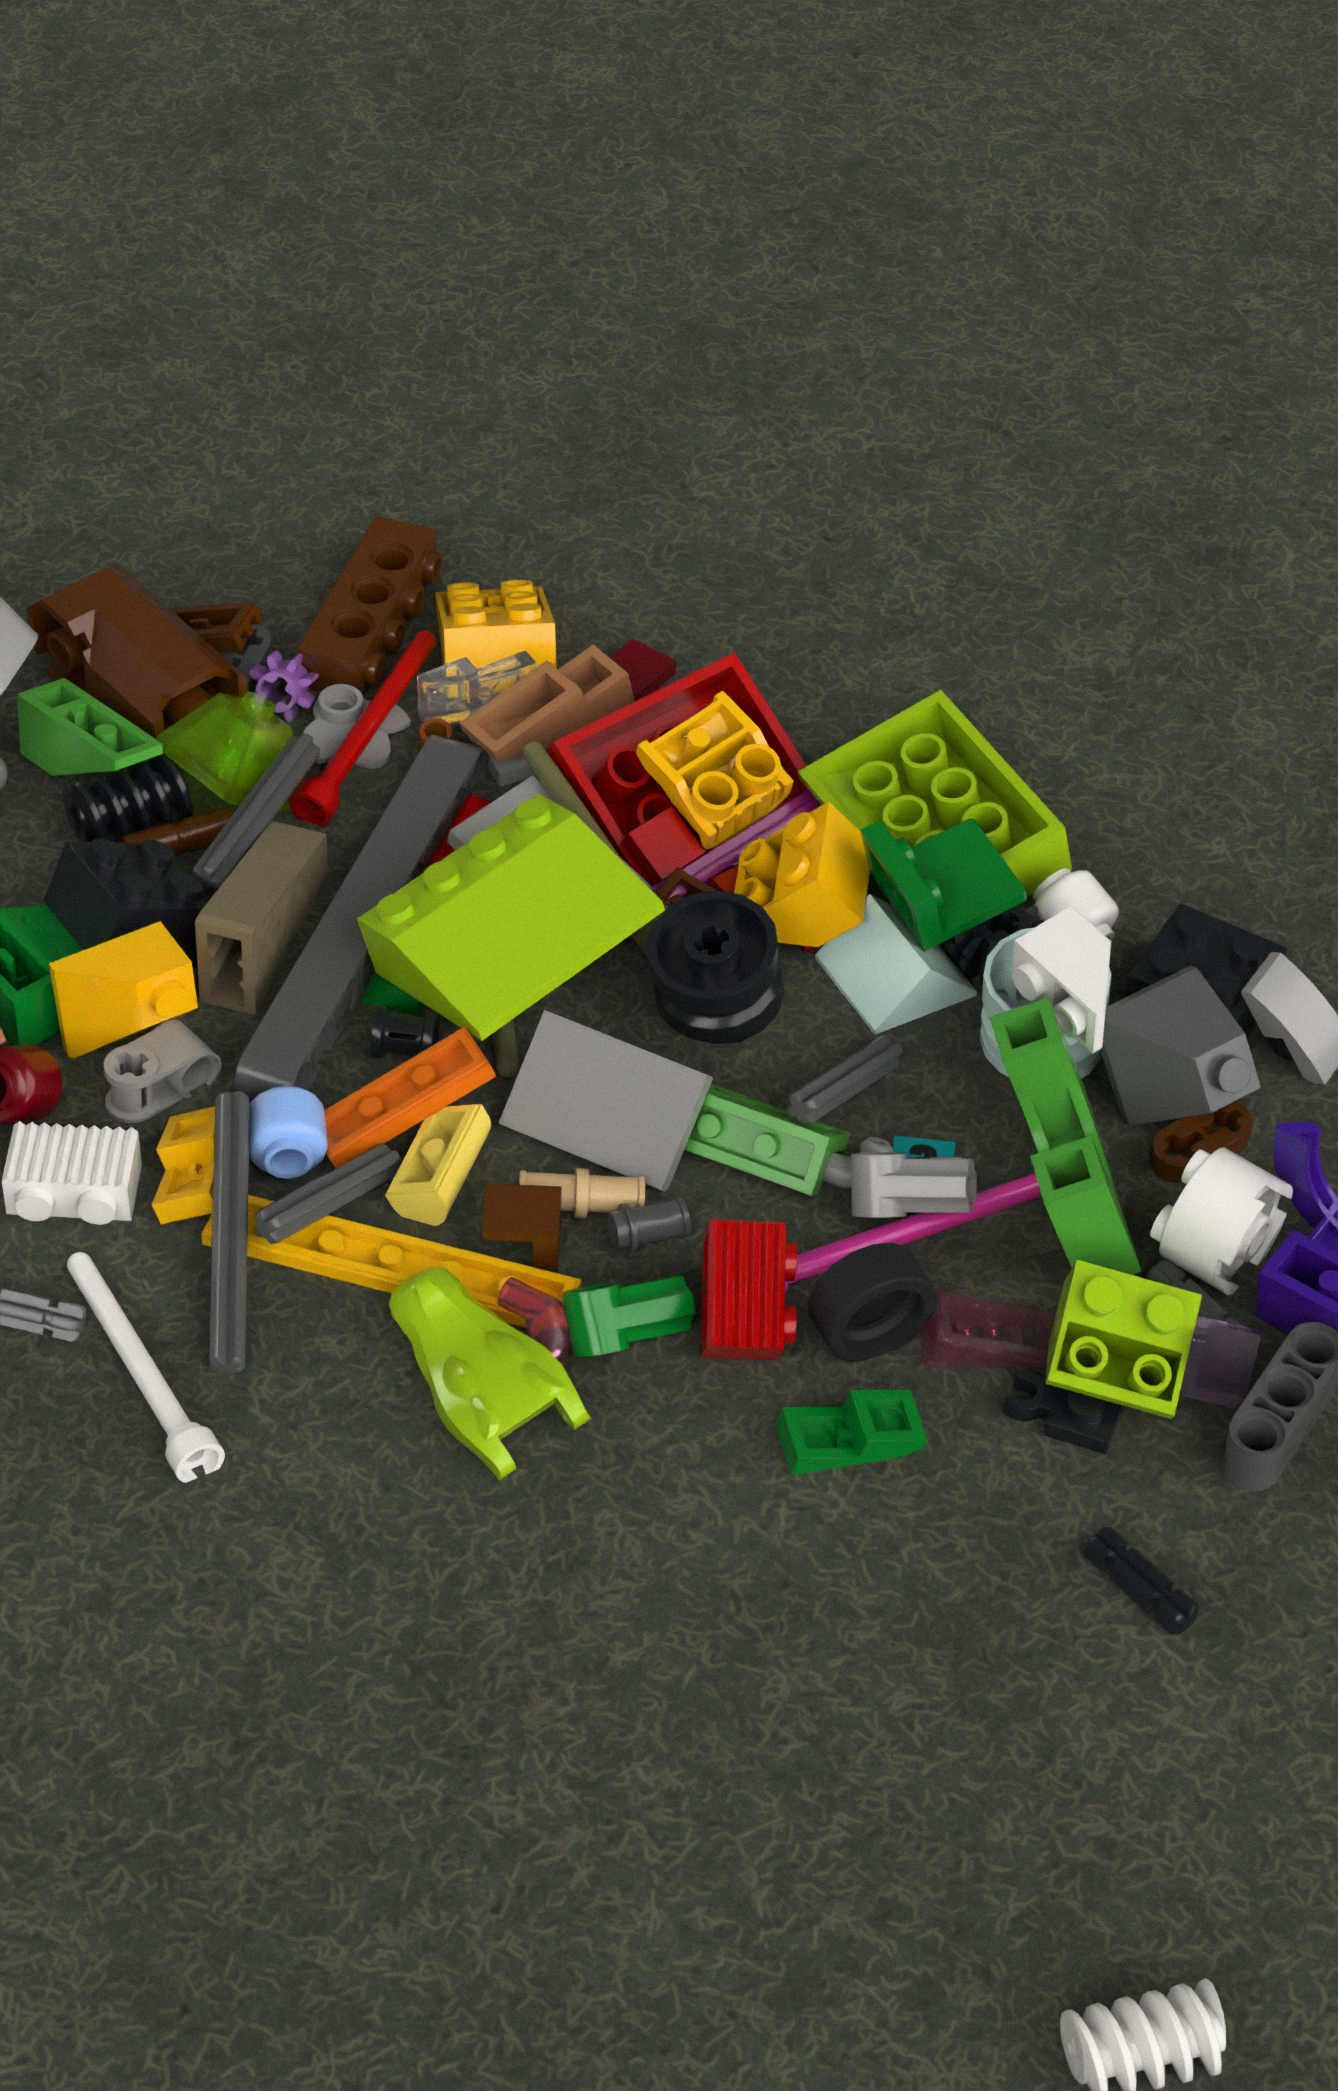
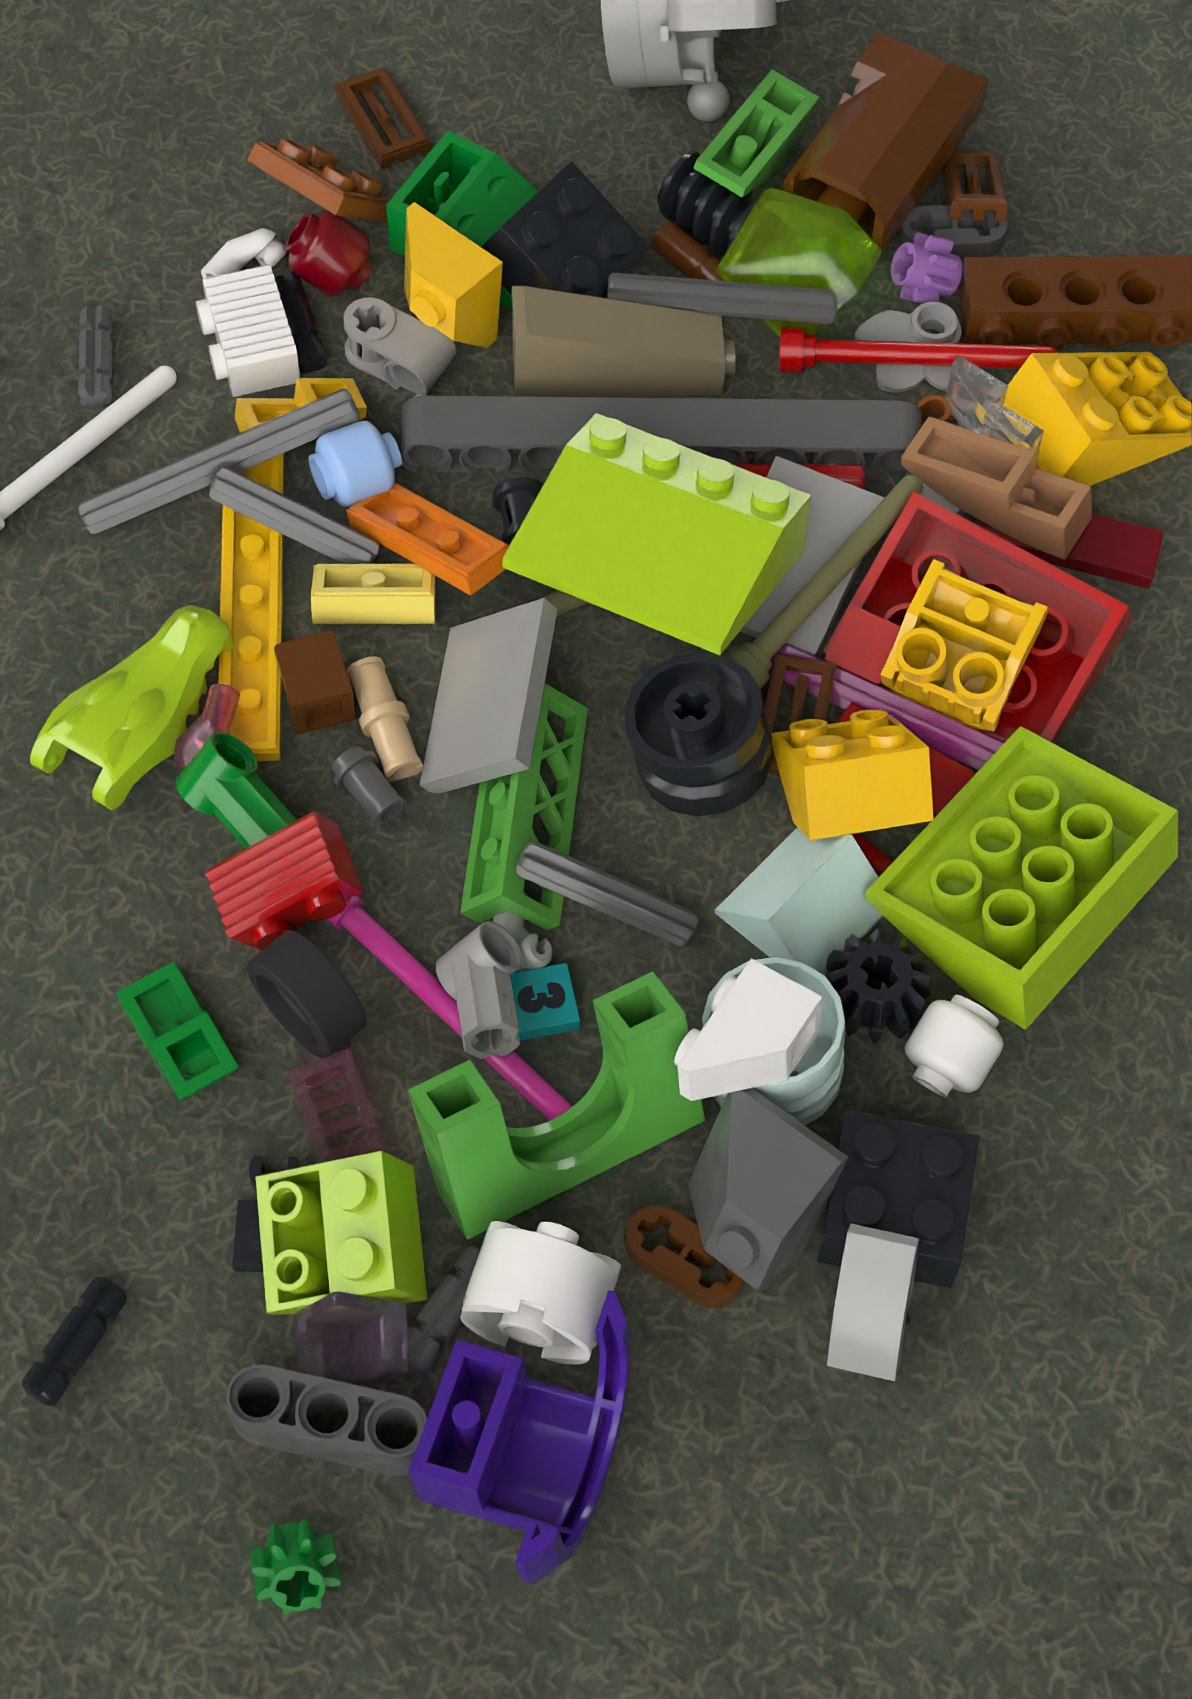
camera: 70 degrees right, 15 degrees up
(943, 881) = (885, 887): green bracket -> none

